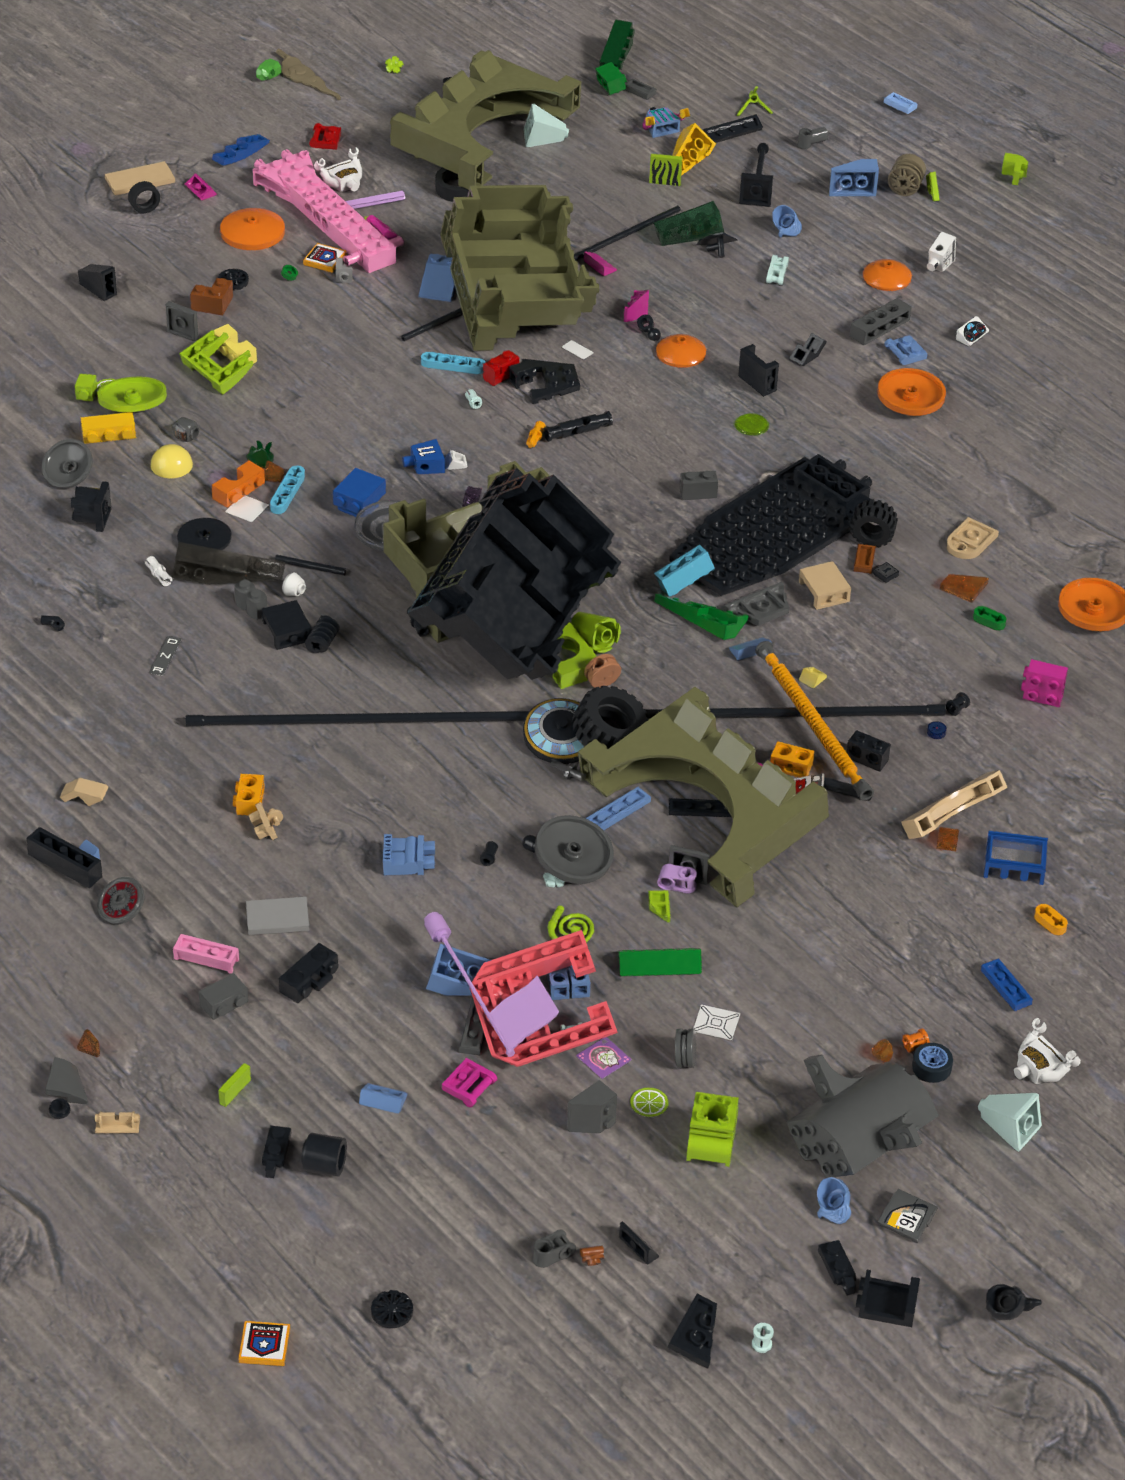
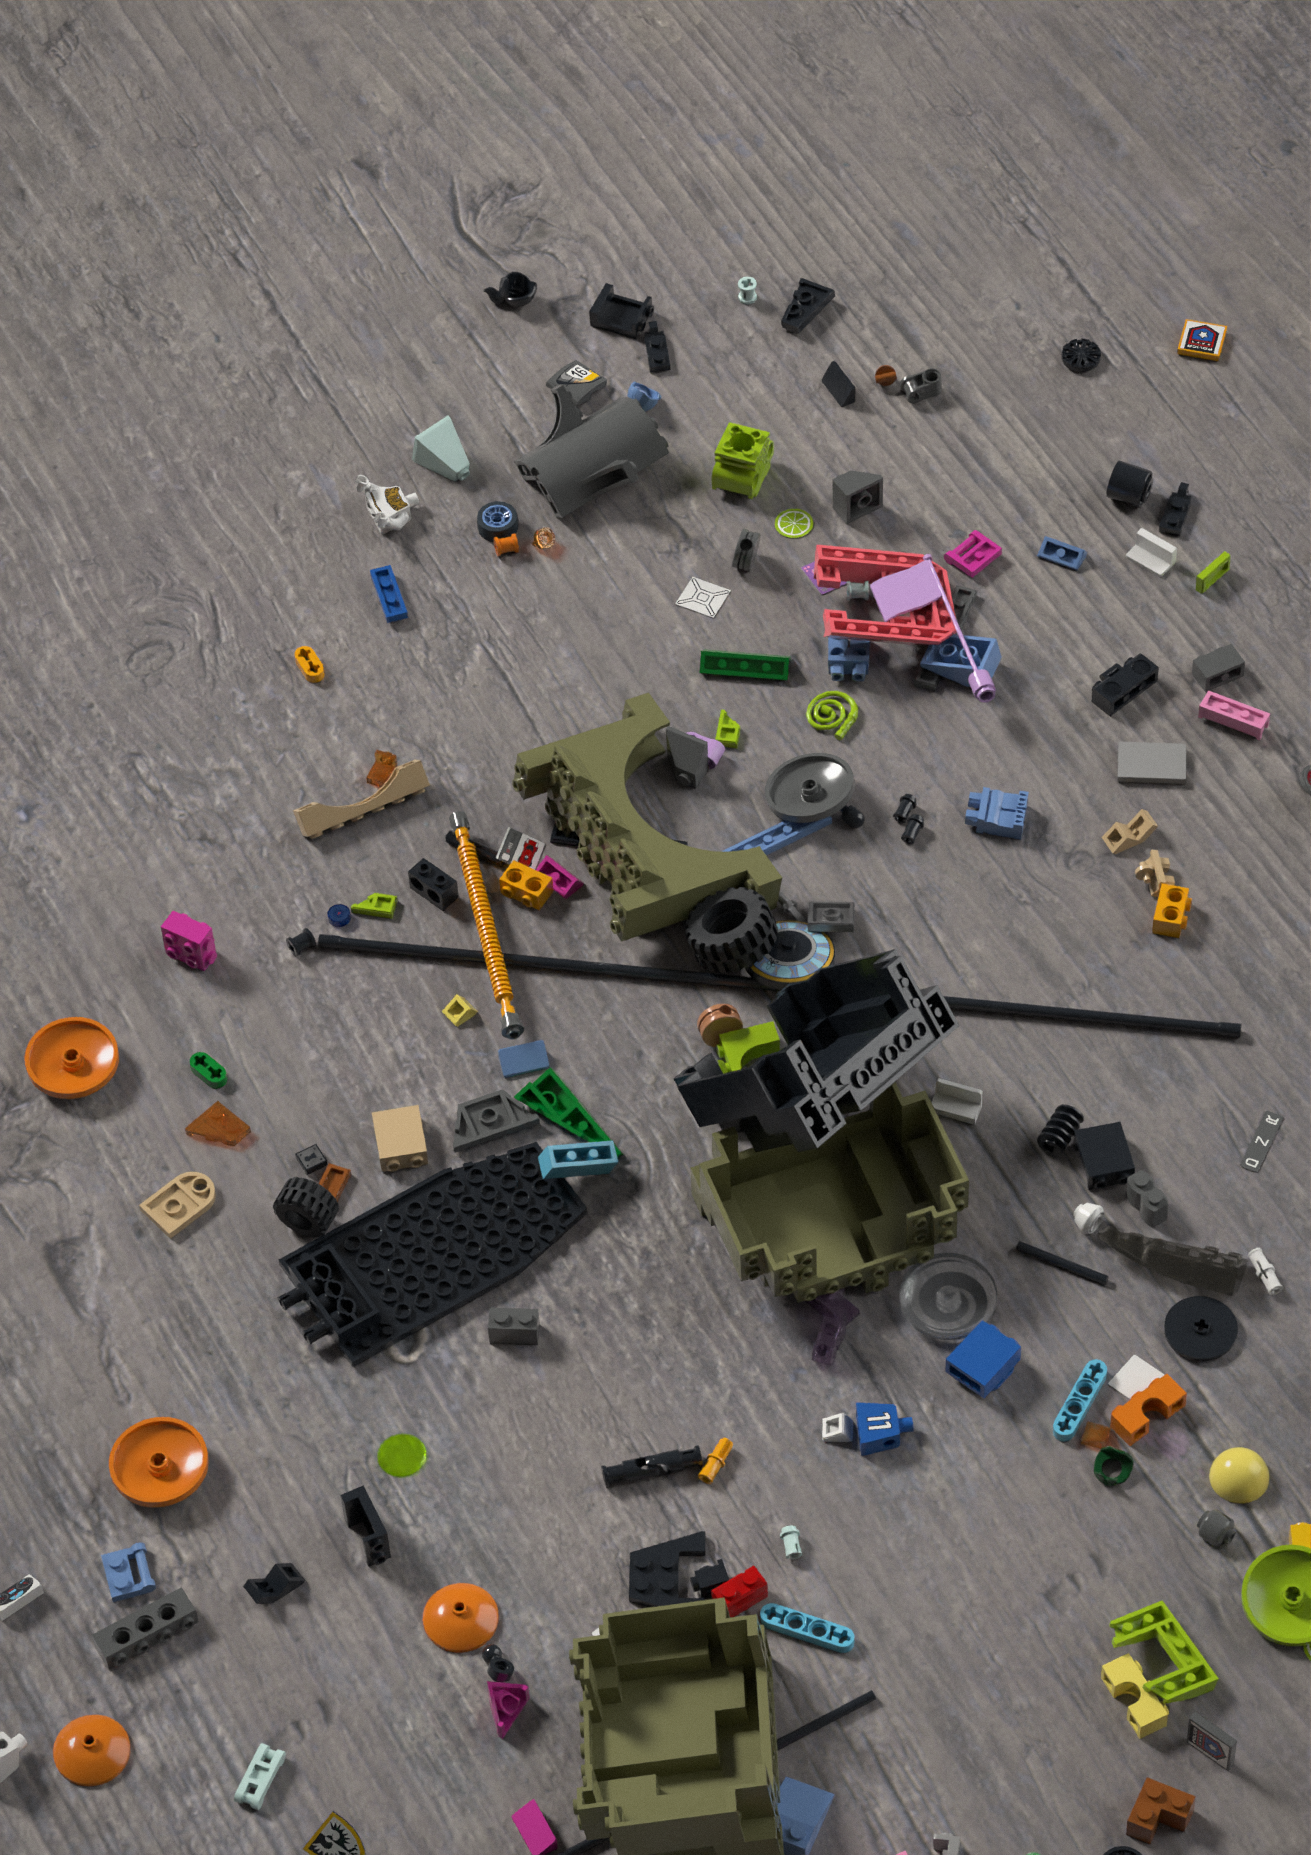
camera: 165 degrees left, 10 degrees up
(292, 855) = (1123, 836): none -> tan slope
(295, 1102) = (1152, 553): none -> white panel
(406, 650) = (957, 1101): none -> white panel
(478, 840) = (912, 829): none -> black pin
(533, 760) = (831, 916): none -> flat silver tile
(909, 741) = (376, 905): none -> lime tile
(1016, 853) = (318, 732): blue window -> none

